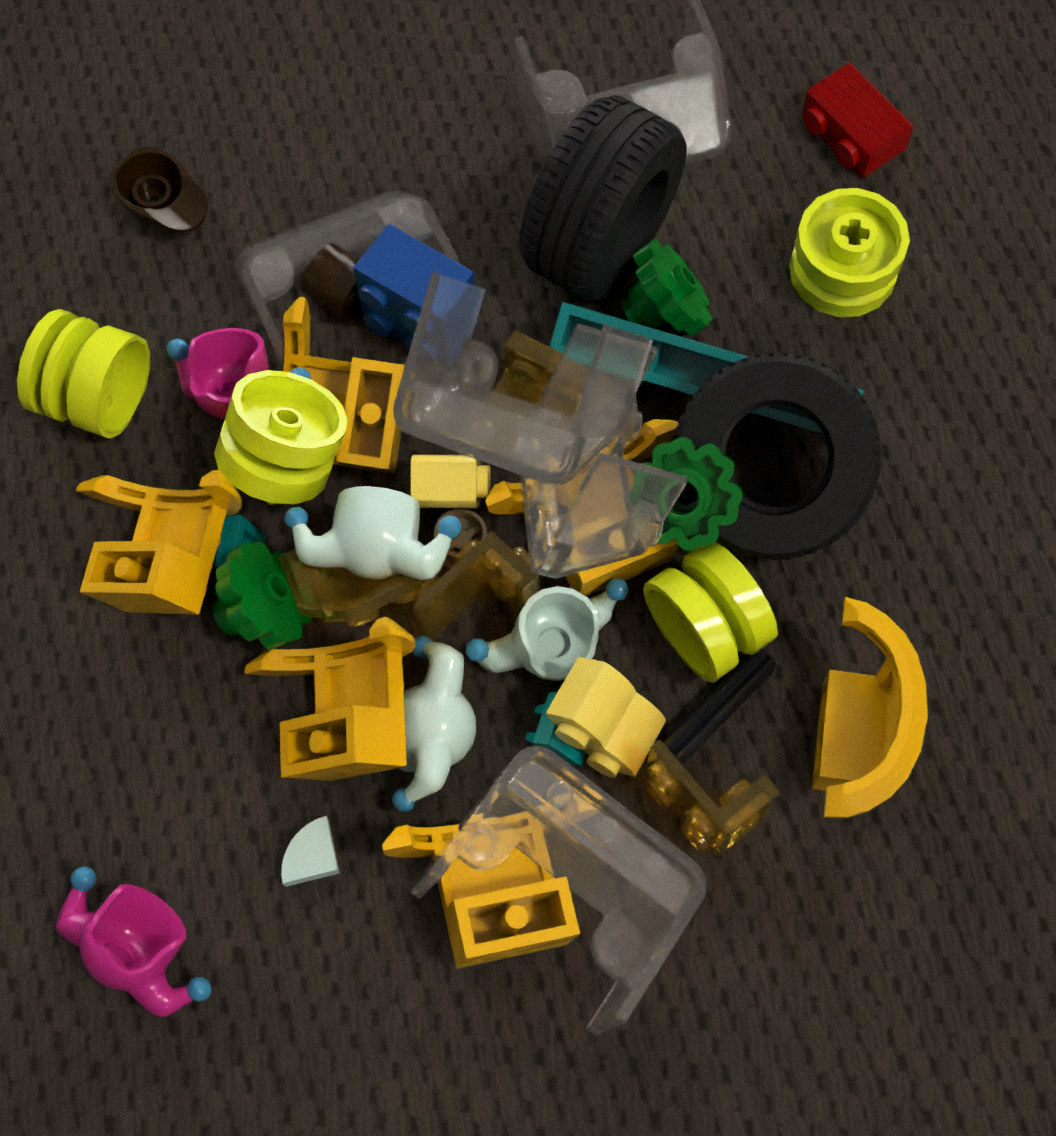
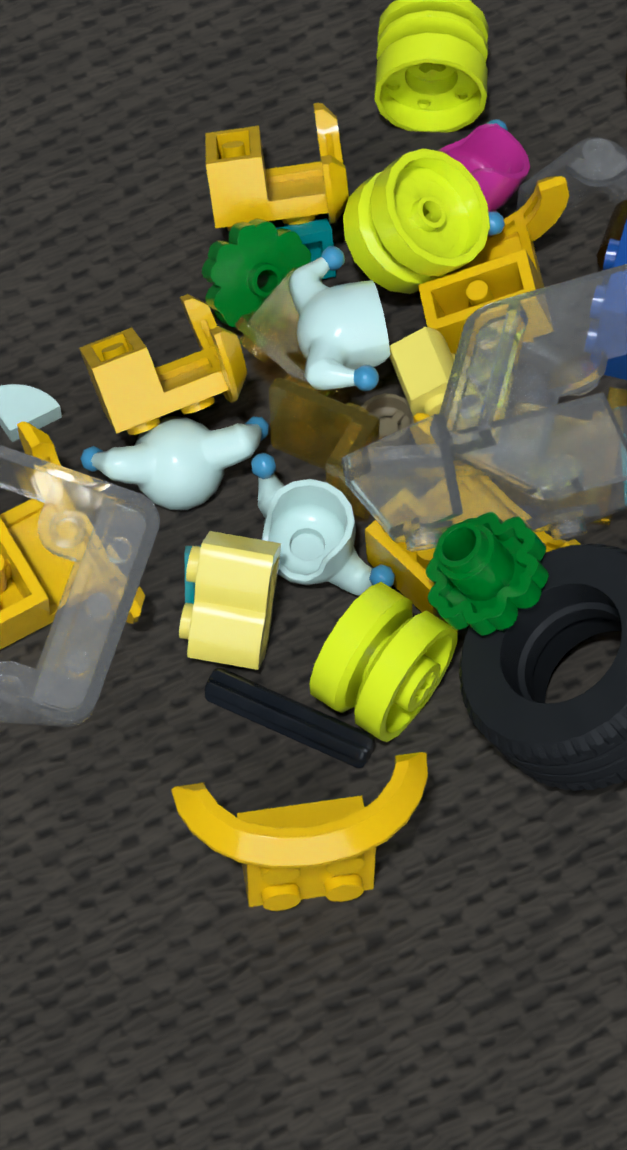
camera: 70 degrees right, 10 degrees down
(706, 824) = (160, 731): clear yellow bracket -> none

